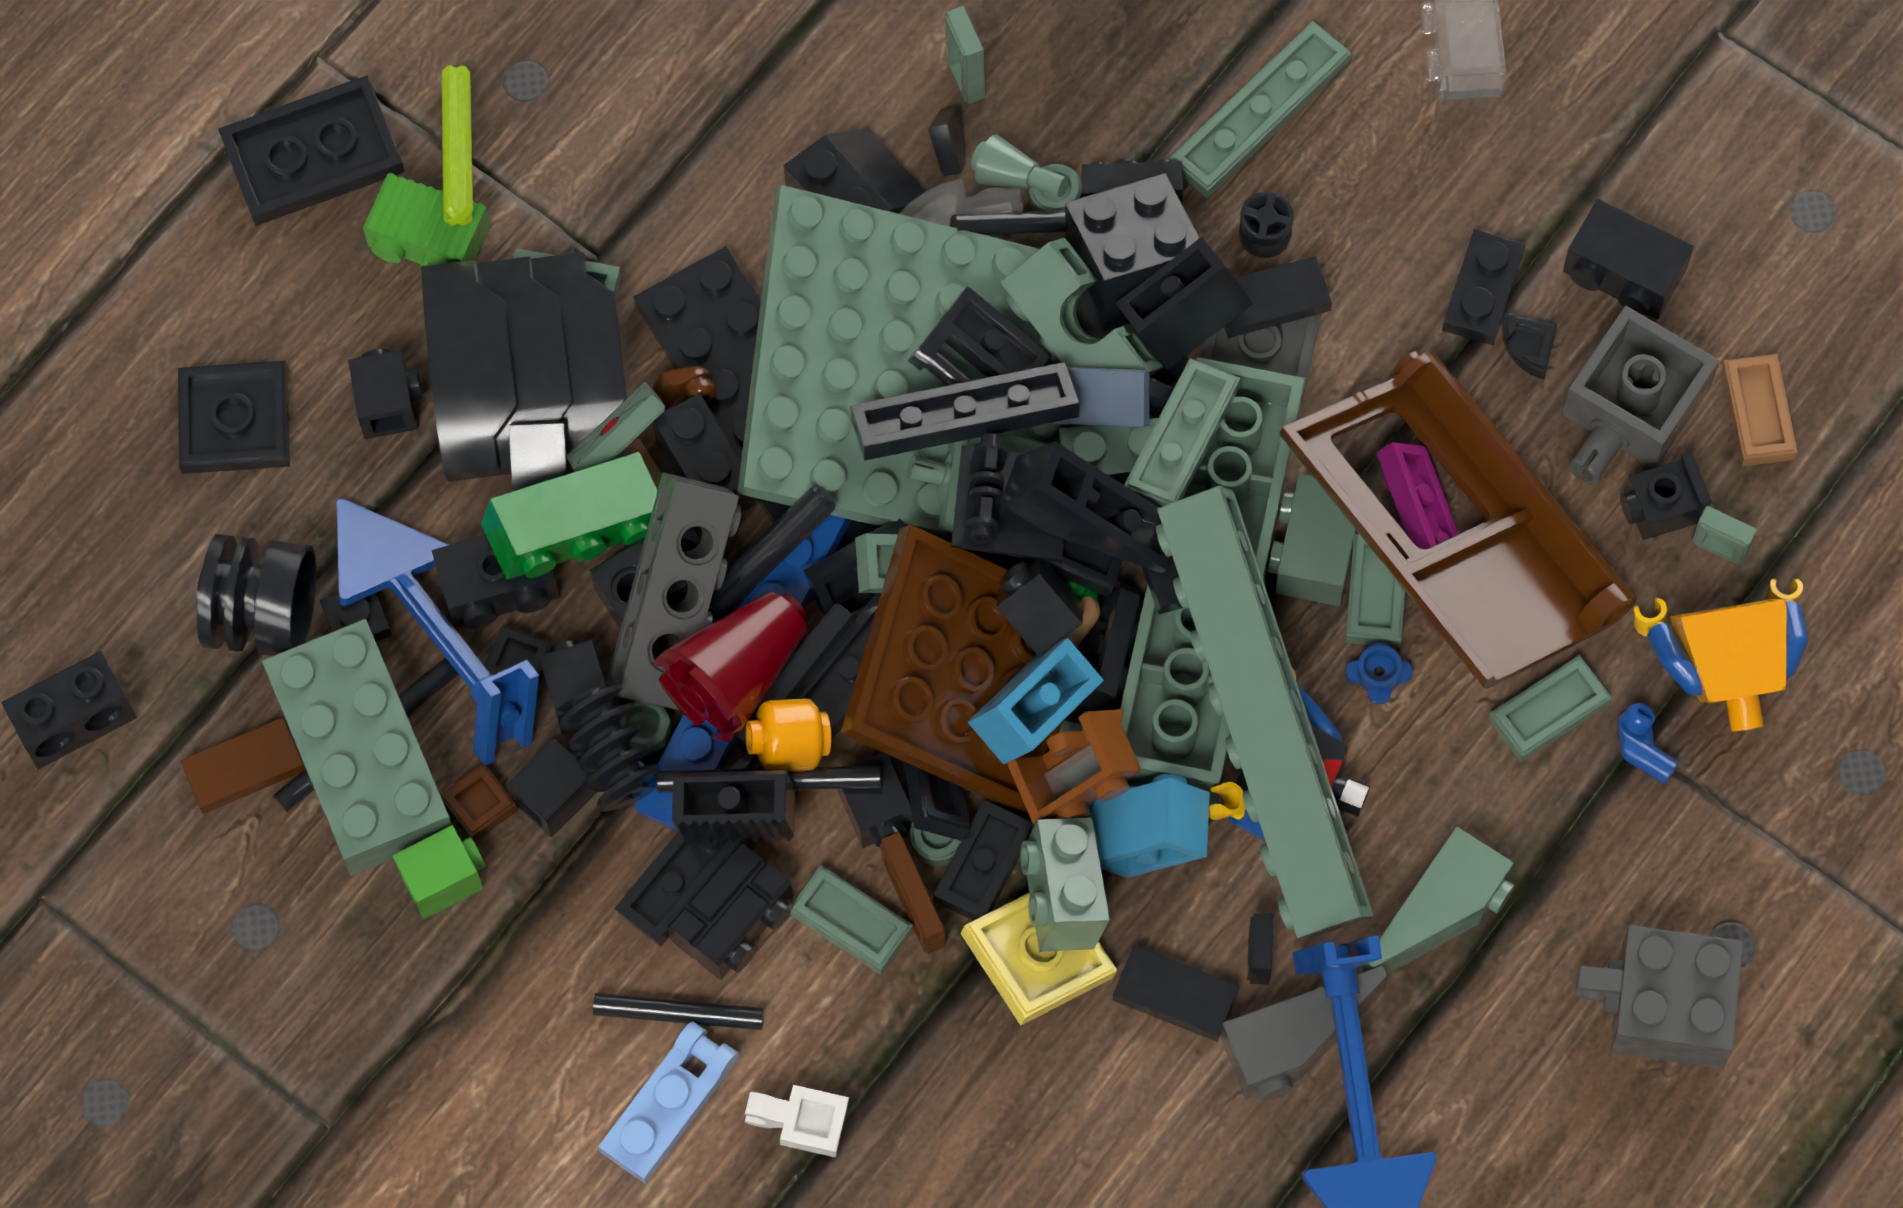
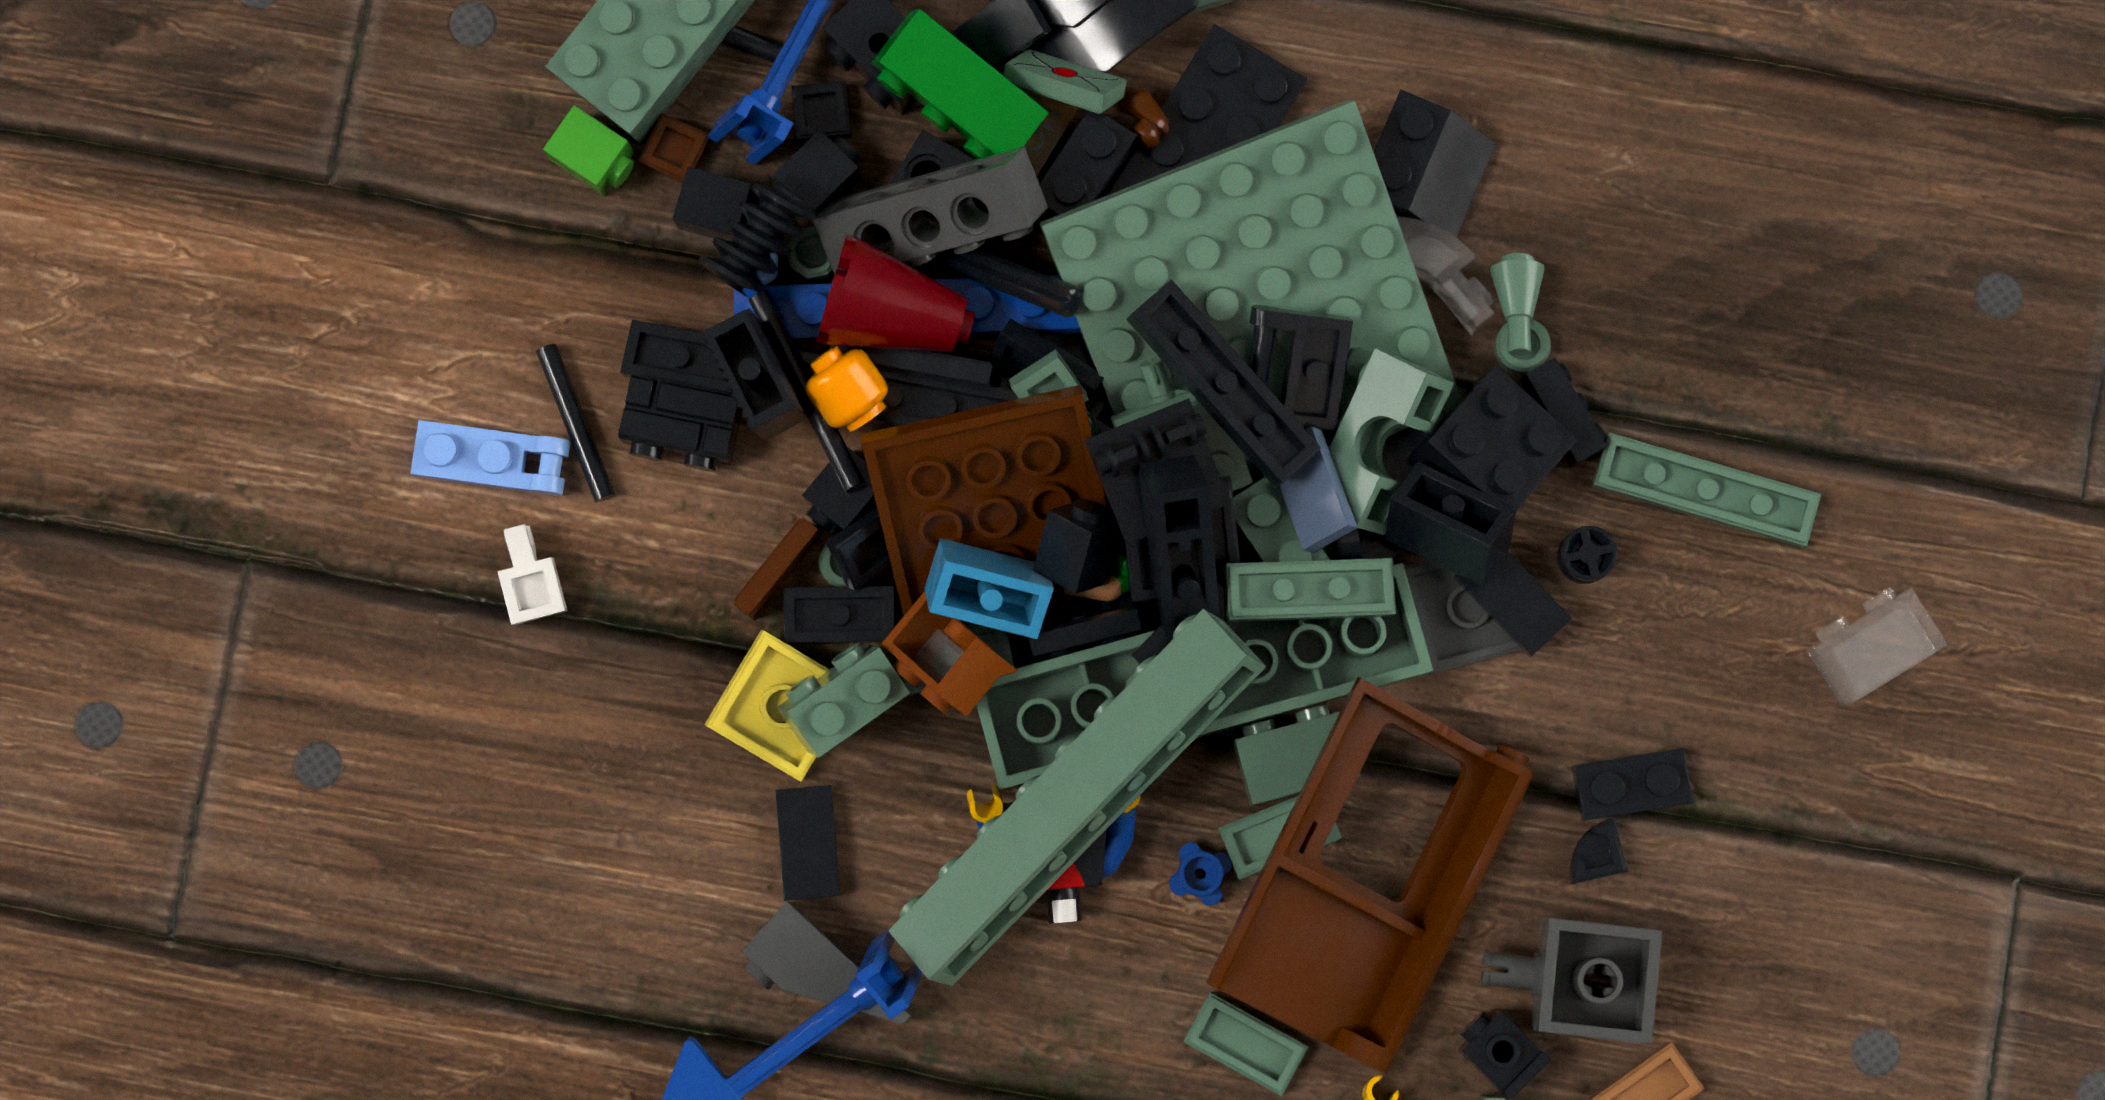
camera: 65 degrees right, 15 degrees up
(851, 920) = (732, 526): sand green tile -> none
(948, 141) = (1520, 222): black tile -> none
(965, 55) = (1602, 193): sand green tile -> none
(1010, 222) = (1457, 322): black bar -> none
(1152, 826) = (934, 750): dark azure brick -> none
(1260, 949) = (880, 898): black tile -> none
(1417, 494) = (1382, 830): magenta plate -> none
(1447, 900) = (1013, 1042): sand green slope -> none
(1627, 259) = (1724, 905): black brick -> none

